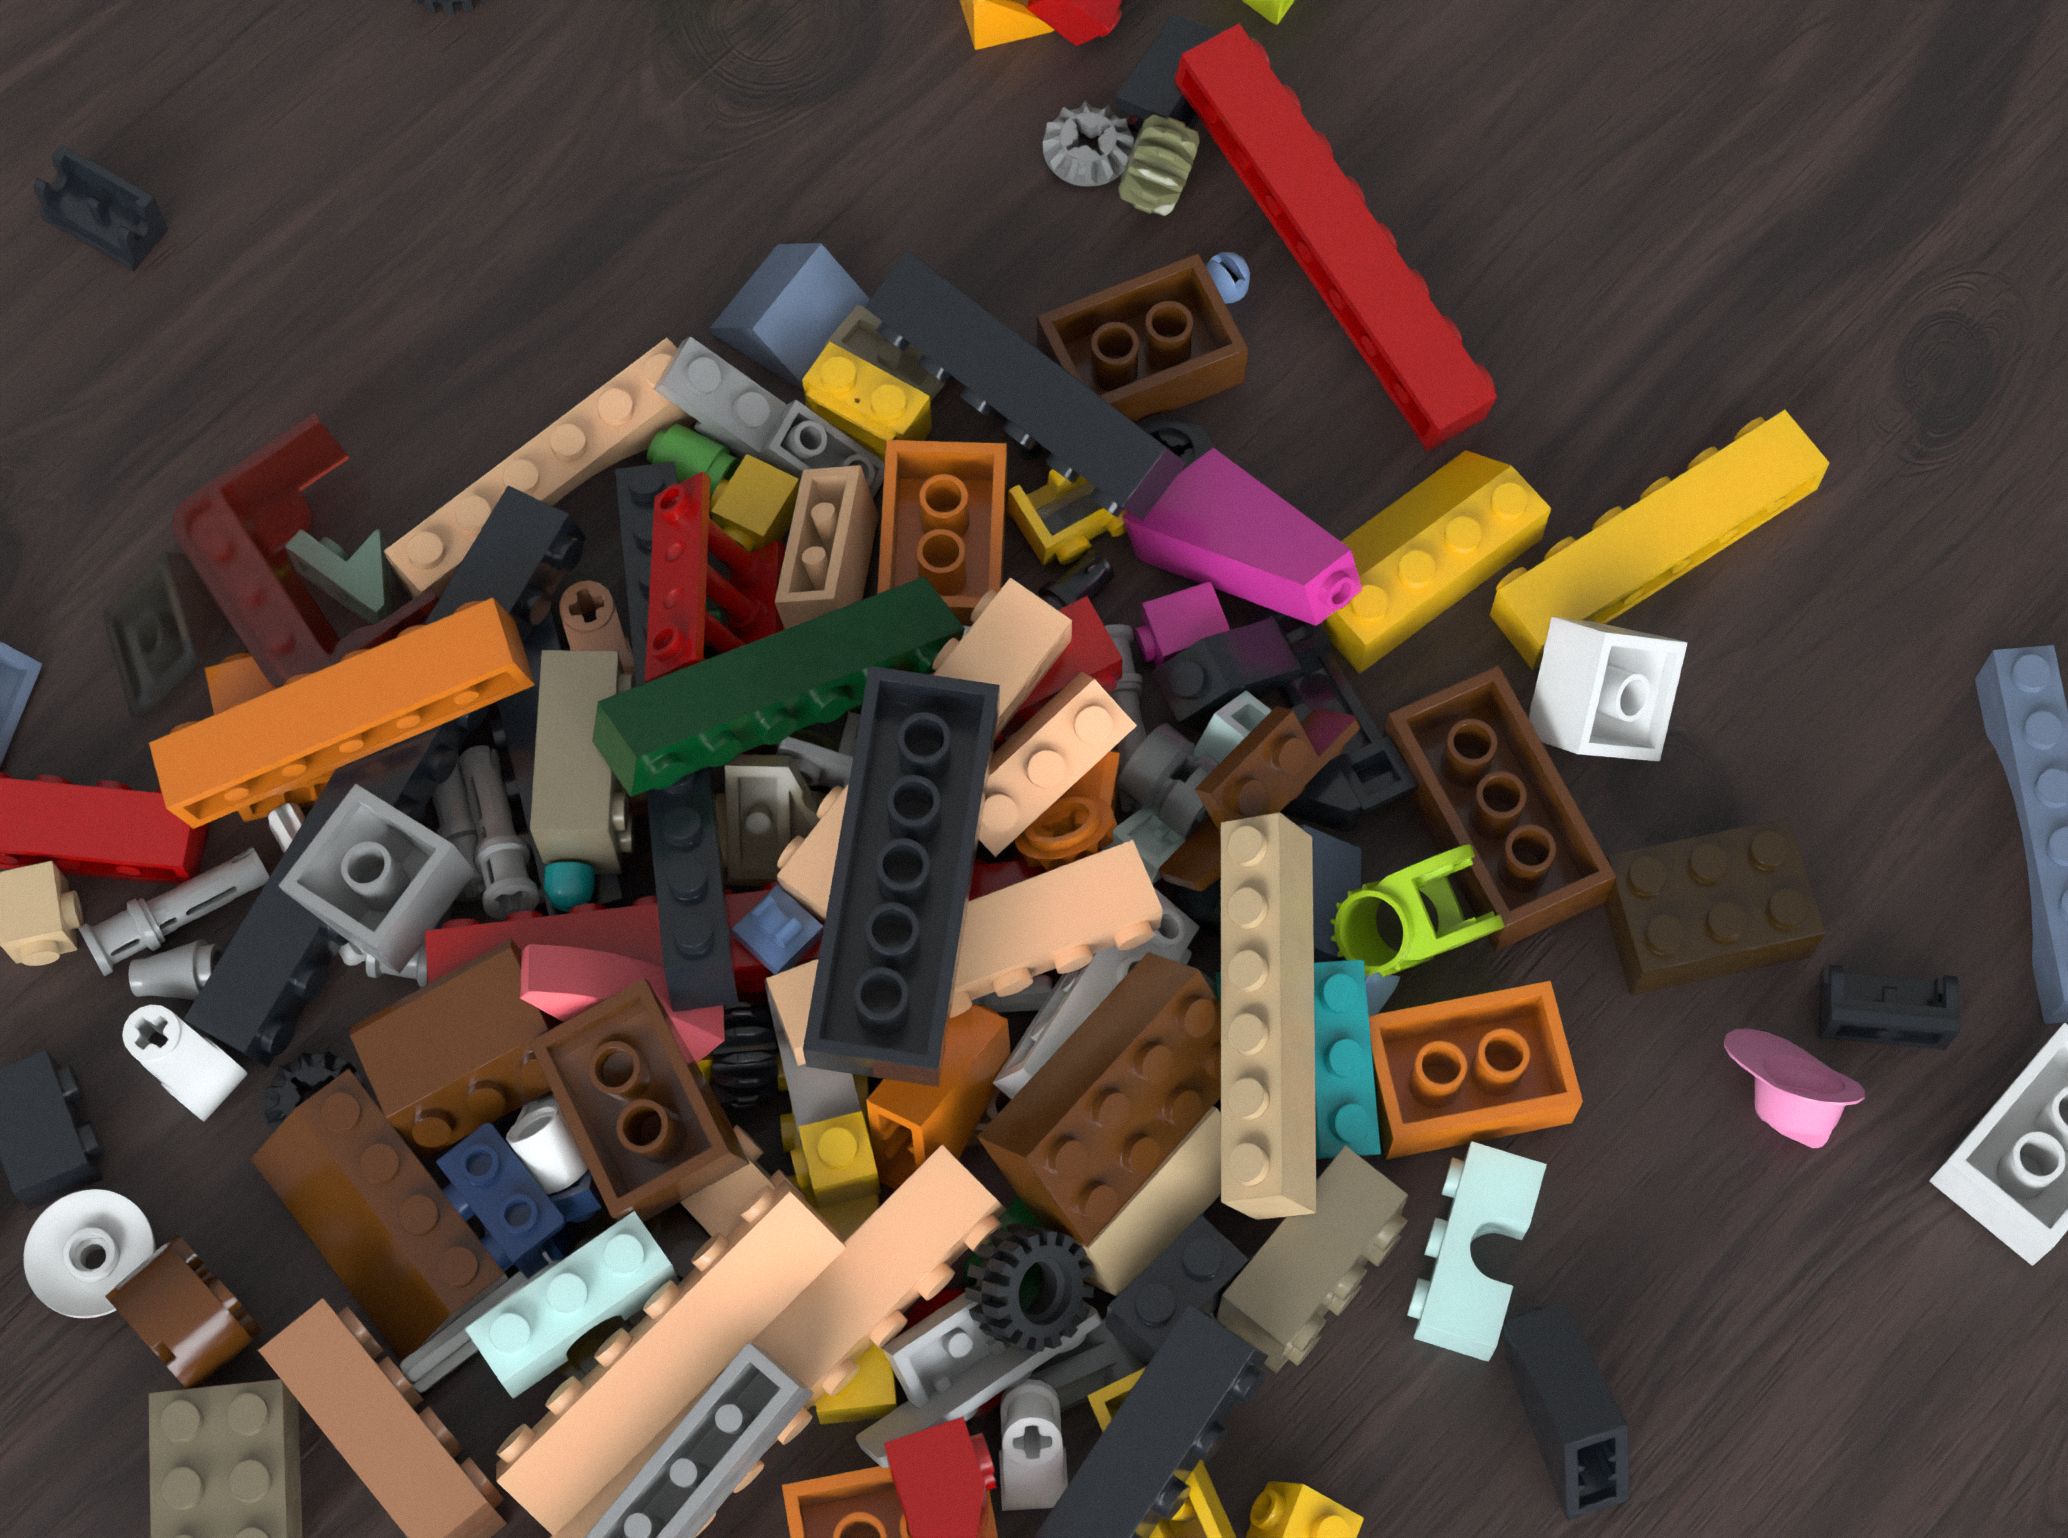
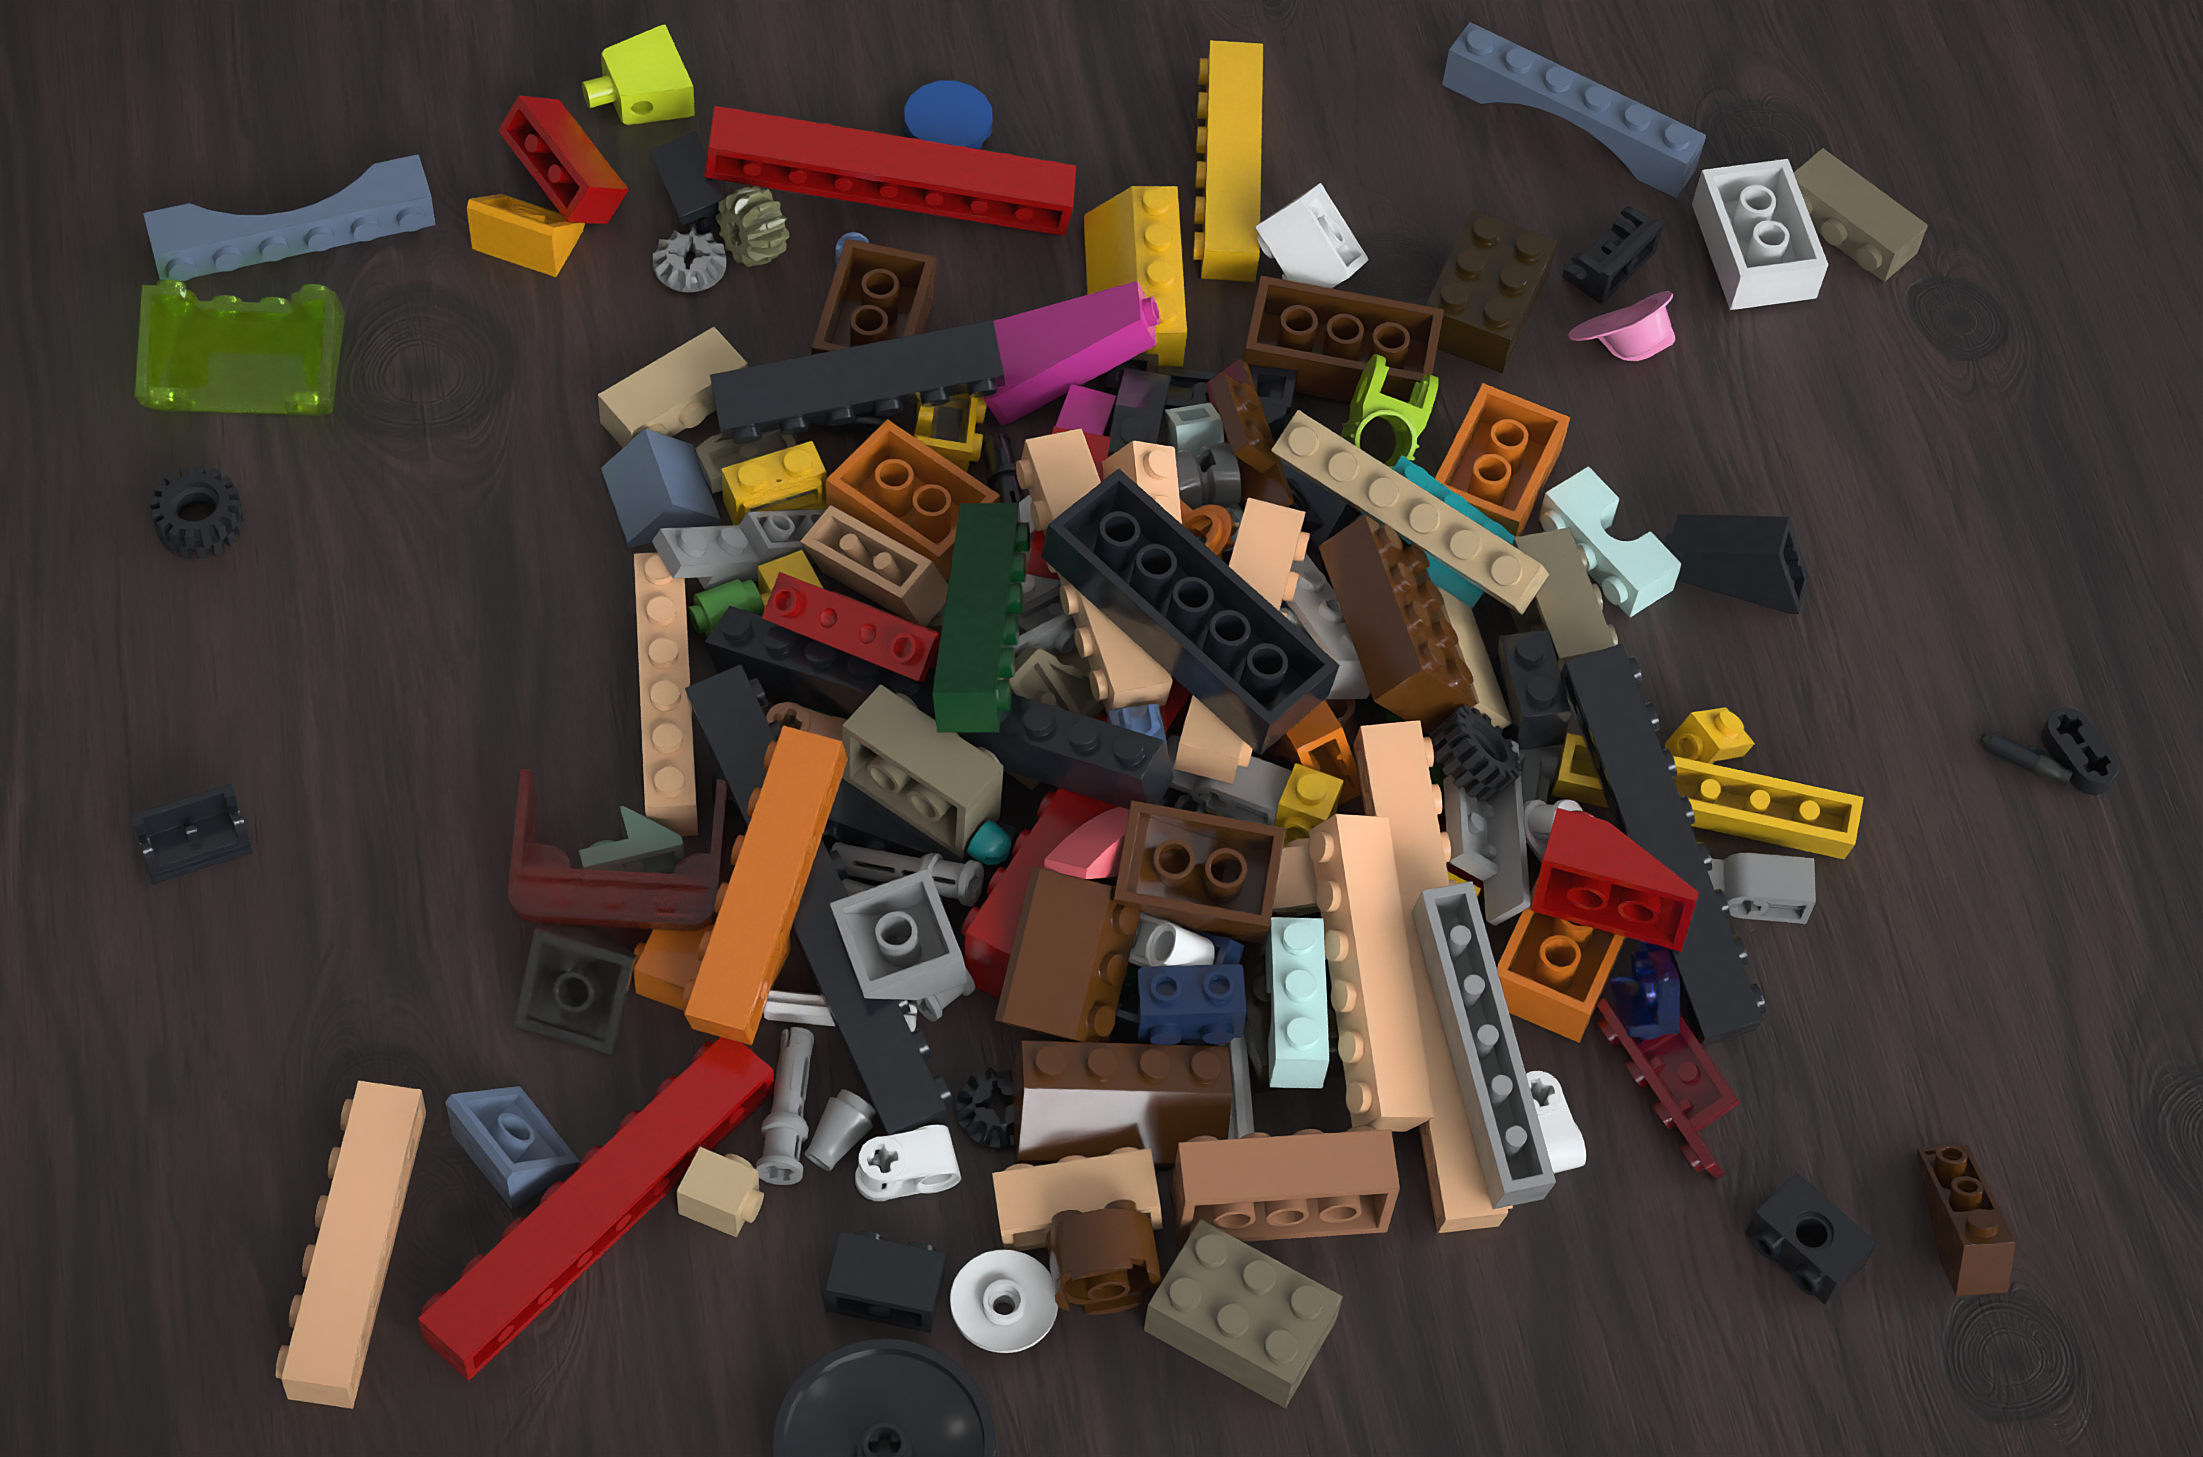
camera: 60 degrees left, 10 degrees down
(244, 1240) = (1033, 1194): none -> light nougat brick
(873, 228) = (670, 391): none -> tan brick
(1473, 244) = (949, 114): none -> blue tile

